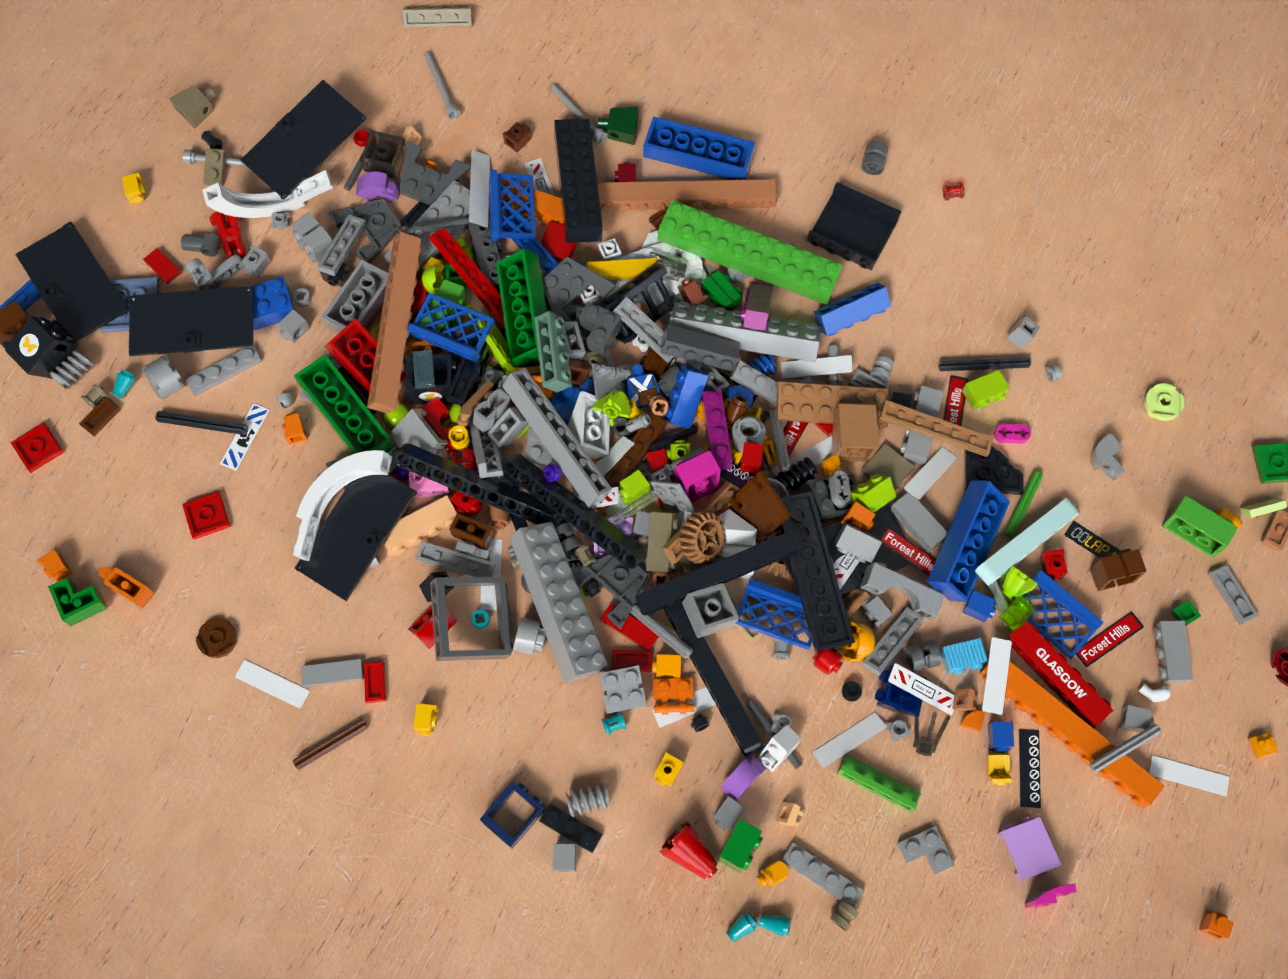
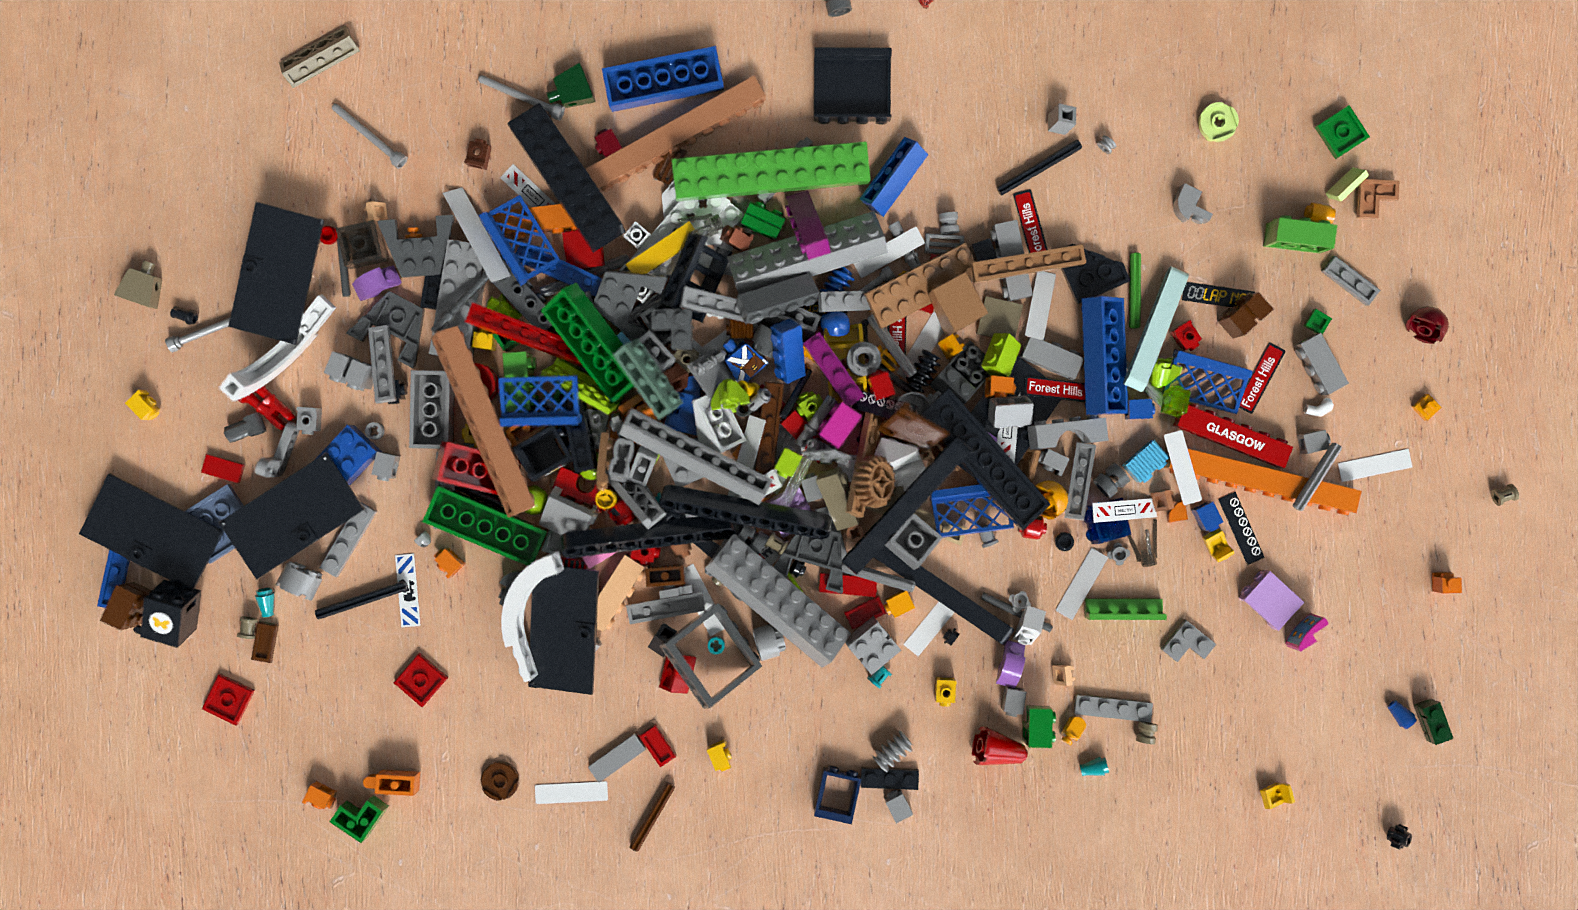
camera: 30 degrees left, 20 degrees up
(71, 369) = (210, 614): light grey piece -> none
(214, 166) = (205, 343): dark tan plate -> none
(280, 224) = (310, 365): light grey plate -> none
(423, 369) = (537, 454): clear light blue tile -> none
(431, 279) = (491, 358): lime hair -> none
(552, 472) = (709, 490): dark purple plate -> none
(658, 411) = (768, 367): nougat bush -> none
(673, 689) = (912, 620): orange plate -> none
(736, 408) = (841, 341): reddish brown brick -> none
(743, 926) = (1069, 783): teal cone -> none
(838, 488) = (969, 366): light grey beam -> none
(986, 390) = (1053, 196): lime brick -> none
(1012, 433) = (1093, 221): dark pink beam -> none

